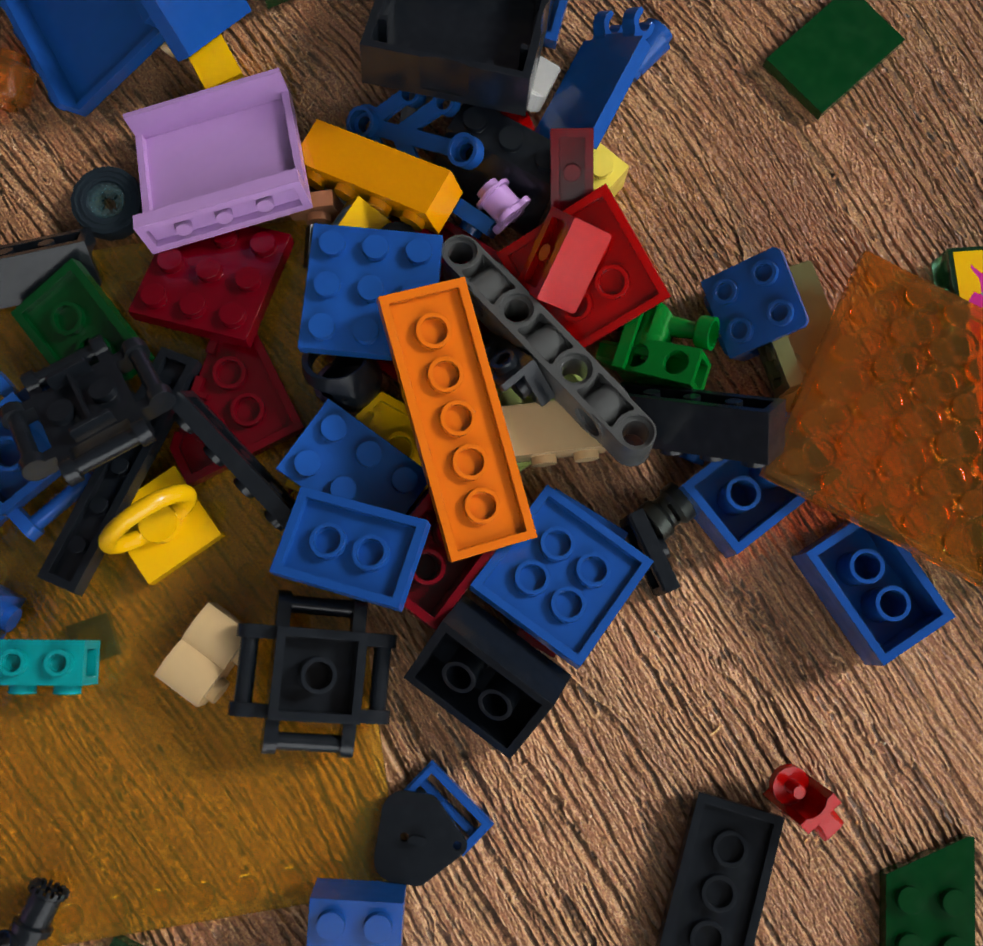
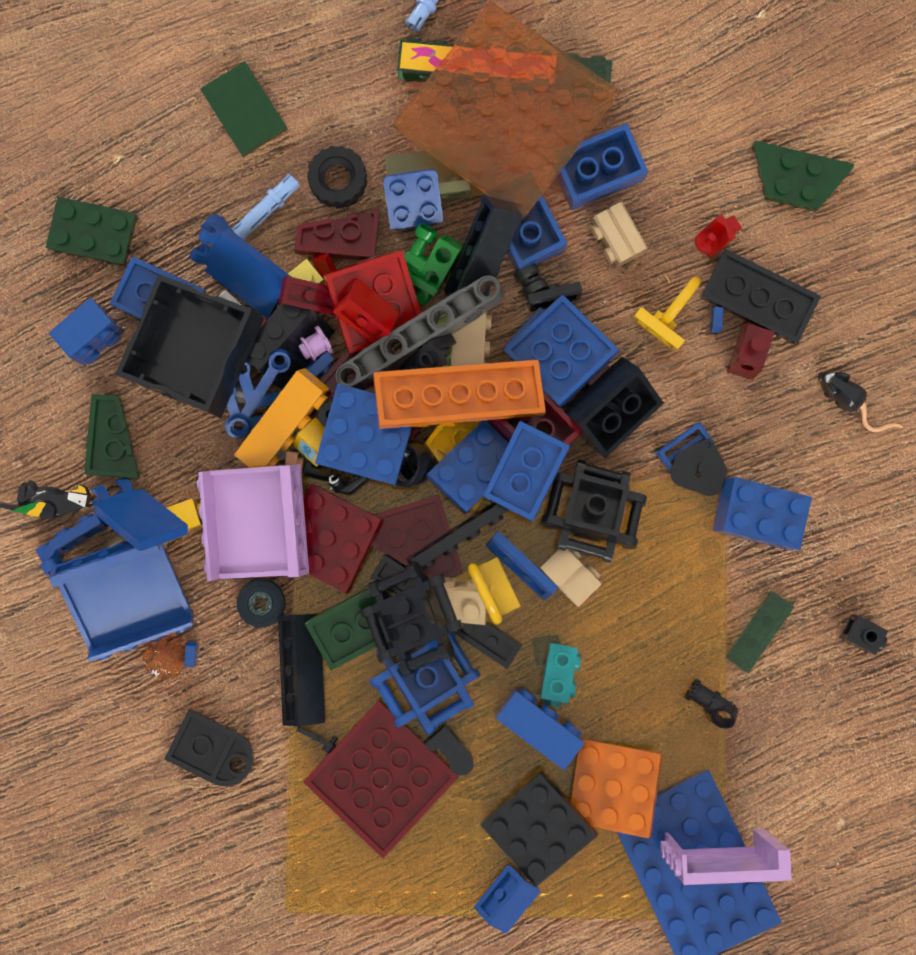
camera: 80 degrees left, 5 degrees up
(22, 120) = (191, 654): none -> blue piece
(132, 478) = (466, 601): none -> tan bracket
(209, 575) = (521, 566): none -> blue tile
(296, 283) = (346, 485): none -> black arm
(625, 892) = (750, 350): none -> dark red torso
(630, 198) = (323, 264): none -> red piece
(638, 733) = (662, 324): none -> yellow tile
(664, 824) = (716, 320): none -> blue piece
(671, 218) = (342, 238): none -> dark red wing
(696, 106) = (274, 199): none -> light blue pin
(764, 166) = (337, 156): none -> black tyre
(769, 637) = (618, 235): none -> tan brick

